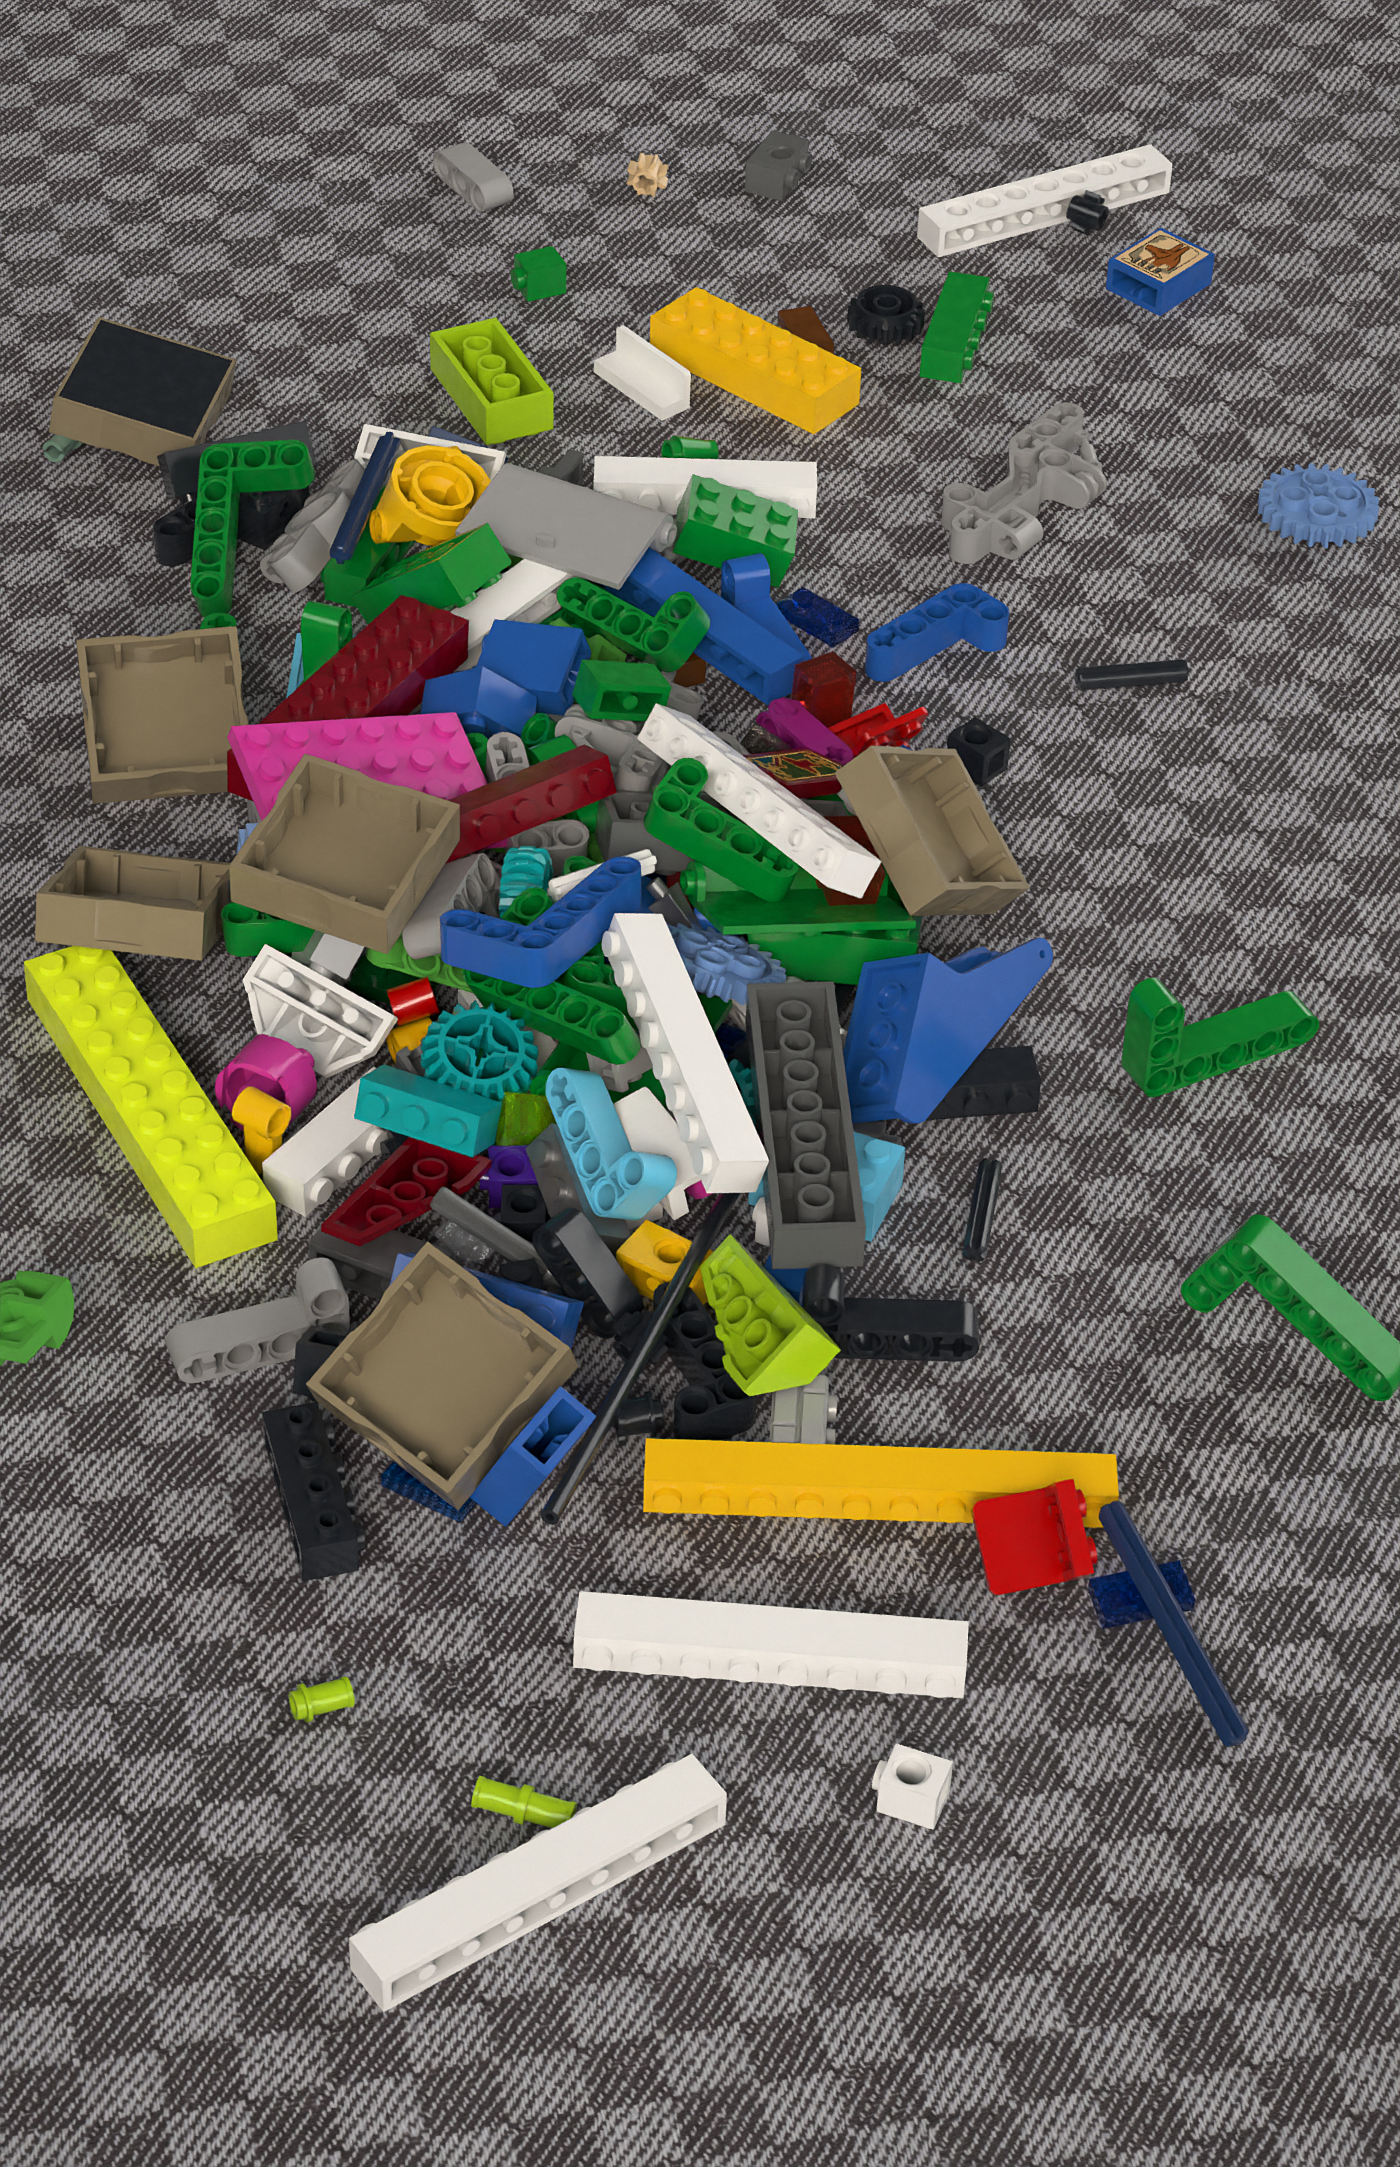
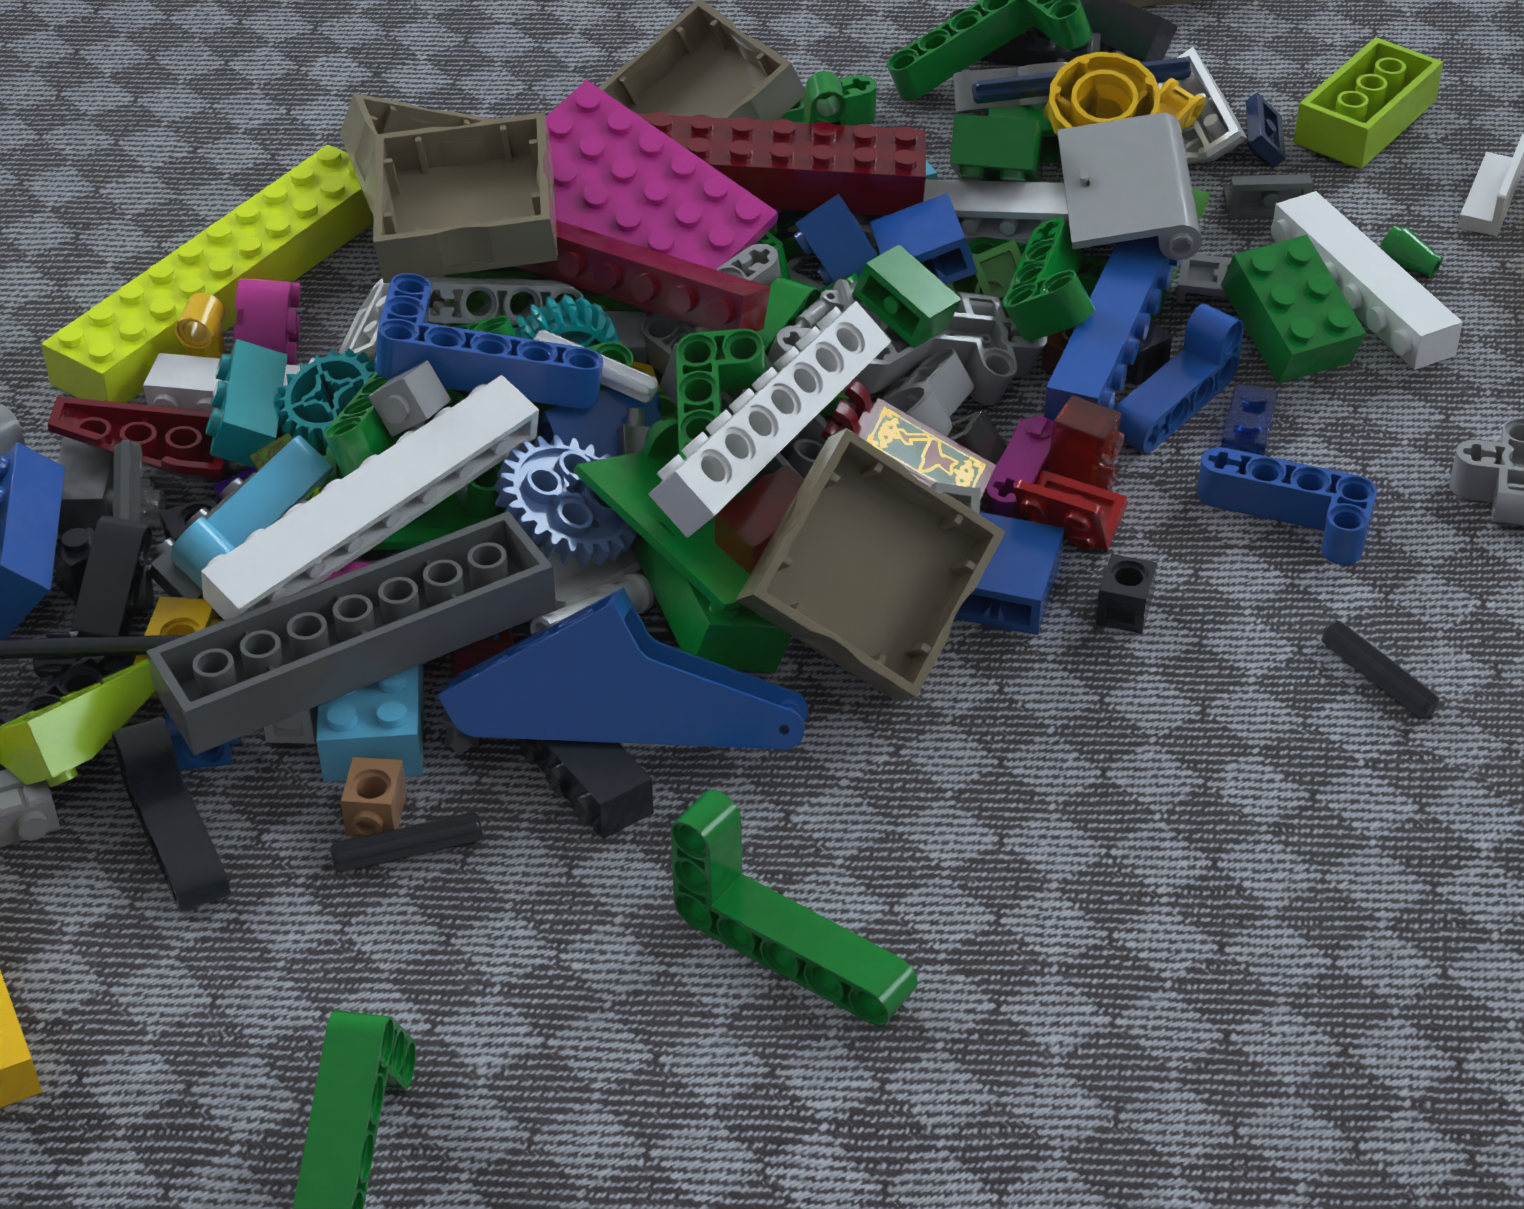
camera: 65 degrees right, 0 degrees up
(594, 974) = (409, 398): none -> light grey brick
(931, 1207) = (373, 796): none -> medium nougat brick

